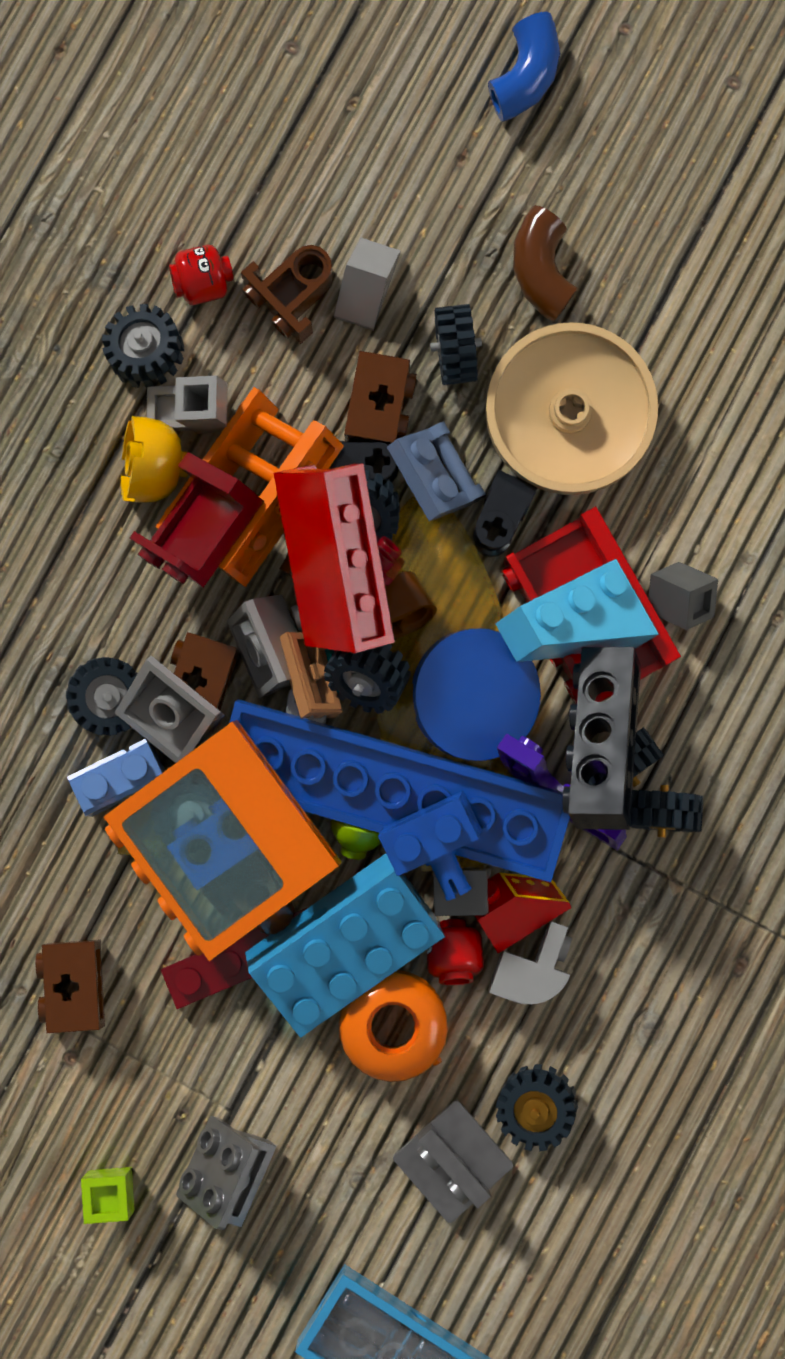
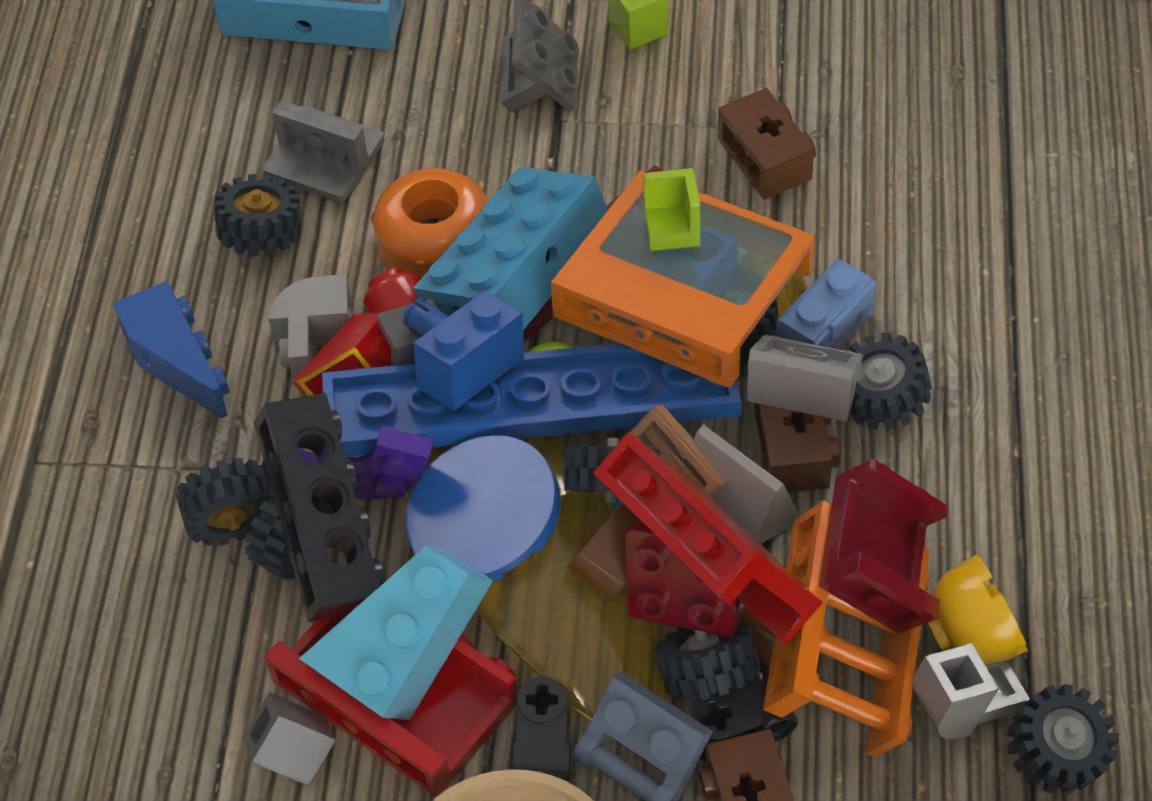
camera: 160 degrees right, 30 degrees down
(212, 880) = (671, 209): none -> lime panel
(659, 1010) = (168, 349): none -> blue slope

